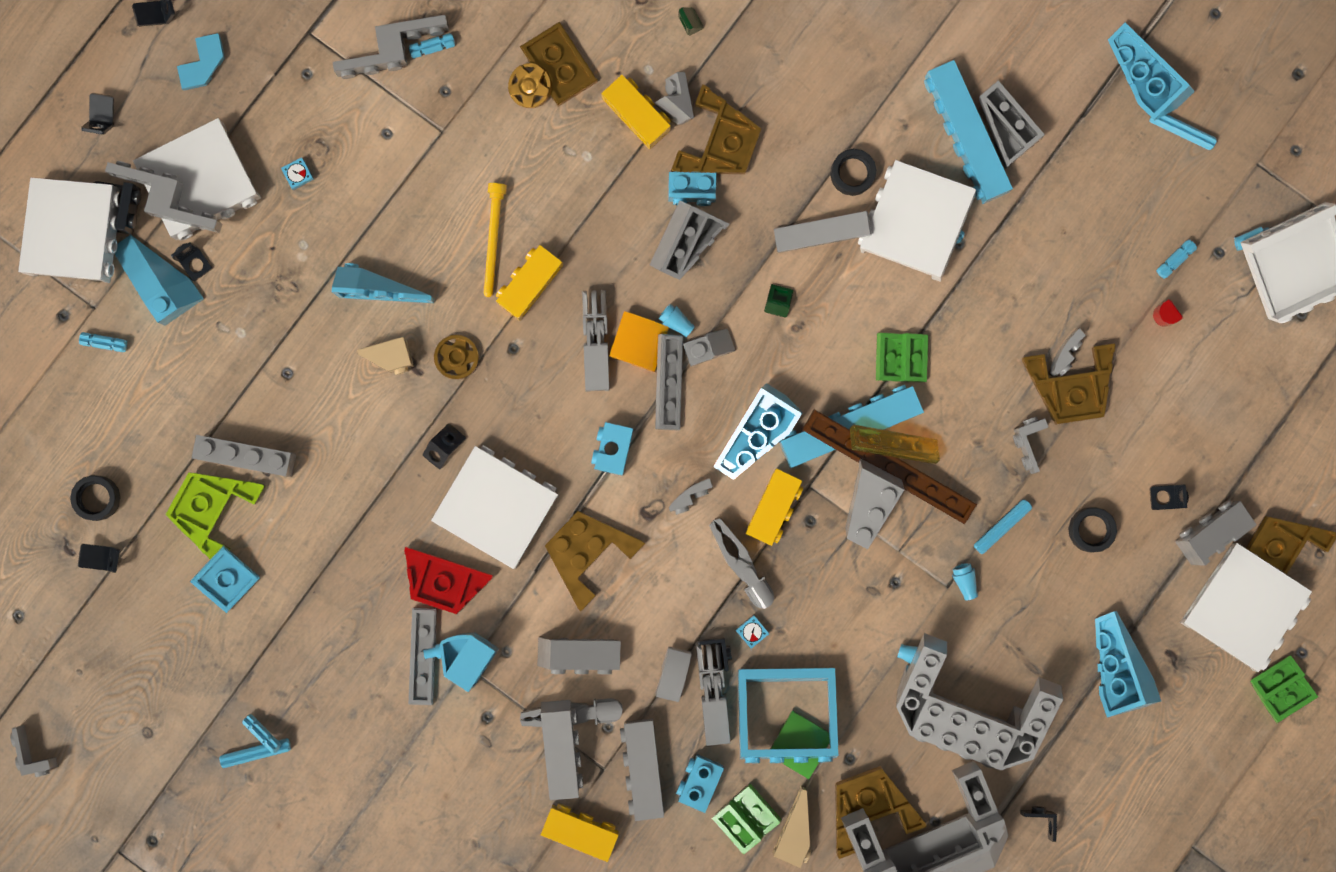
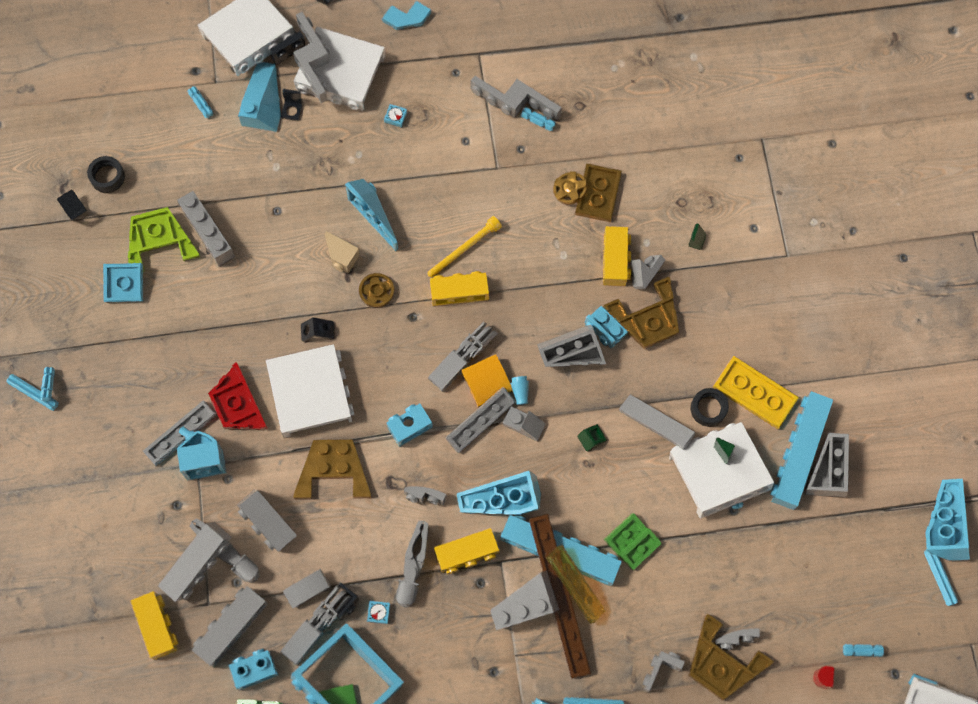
camera: 50 degrees right, 15 degrees down
(878, 117) = (756, 392): none -> yellow tile
(908, 201) = (724, 449): none -> dark green slope

